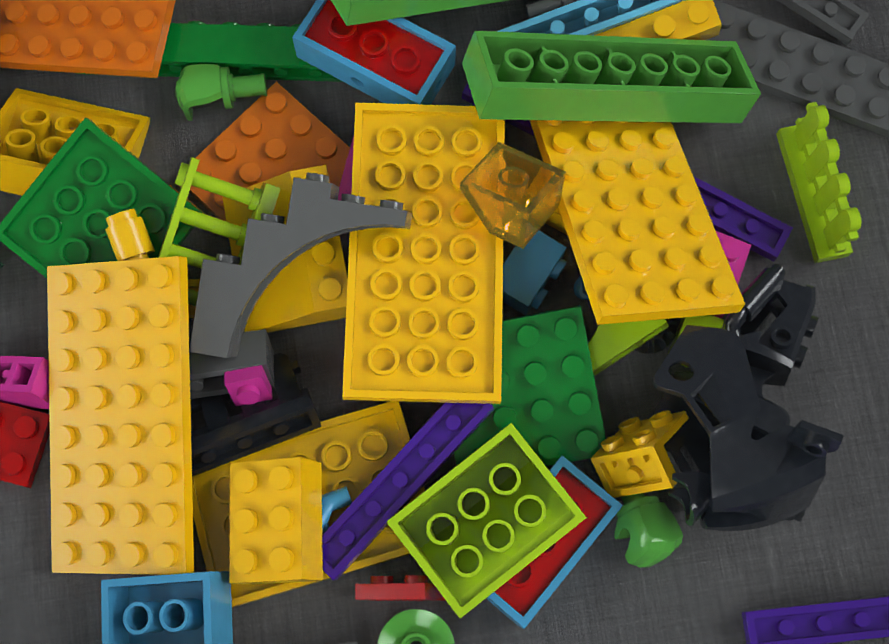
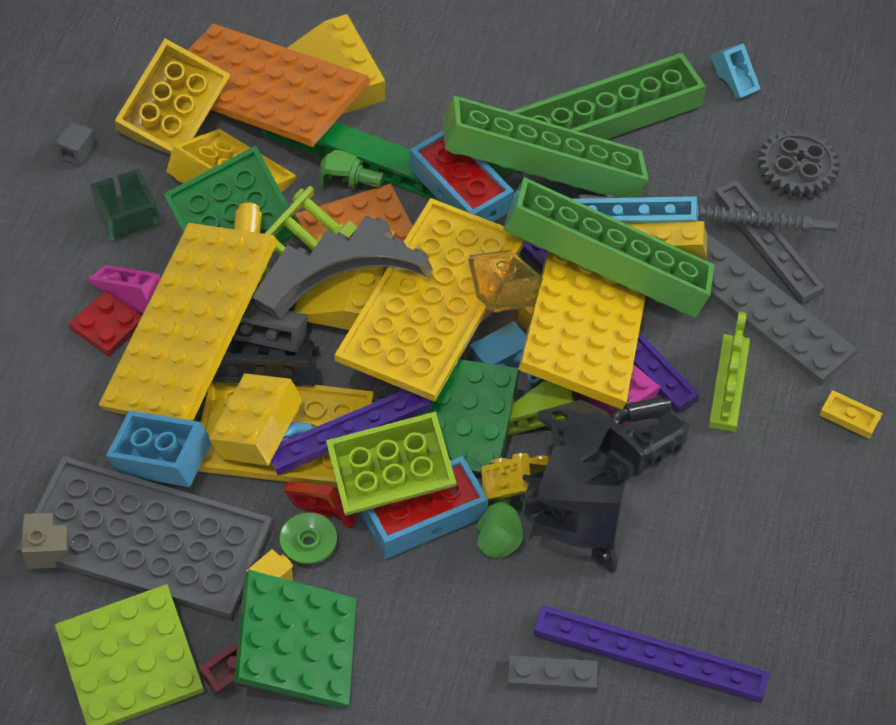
camera: 25 degrees right, 20 degrees down
(248, 385) = (279, 340): dark pink plate -> none

